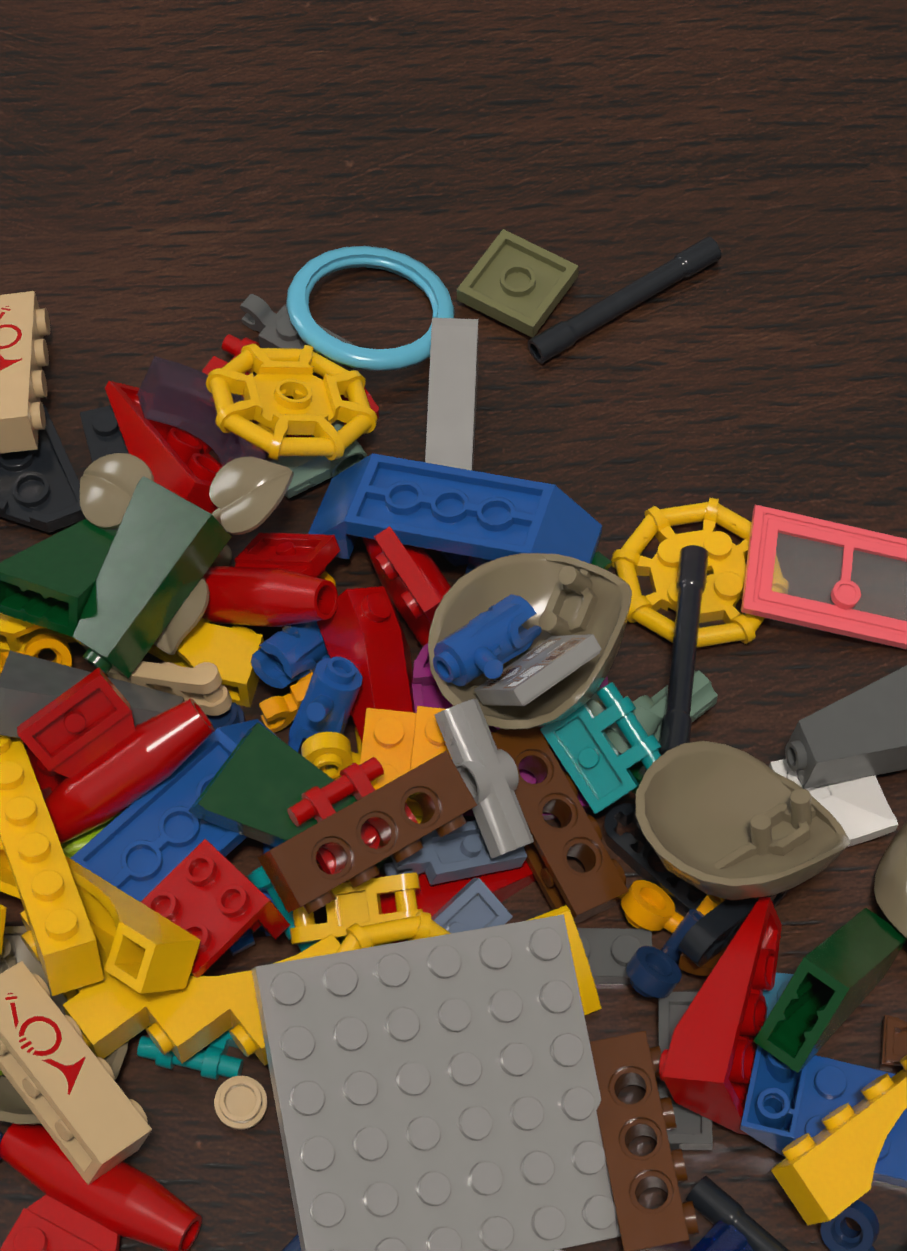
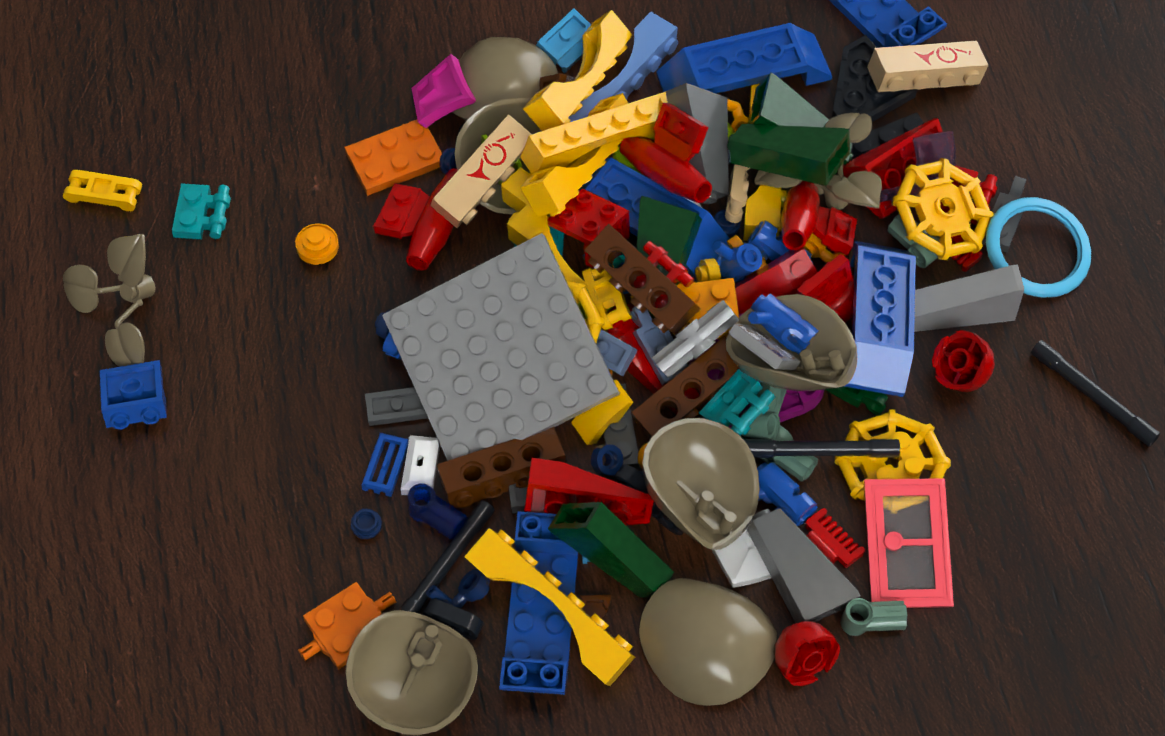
camera: 80 degrees right, 0 degrees up
(517, 283) = (1086, 327): olive plate -> none
(583, 440) = (963, 361): none -> red cylinder
(749, 723) = (783, 492): none -> blue piece
(824, 689) = (828, 544): none -> red piece

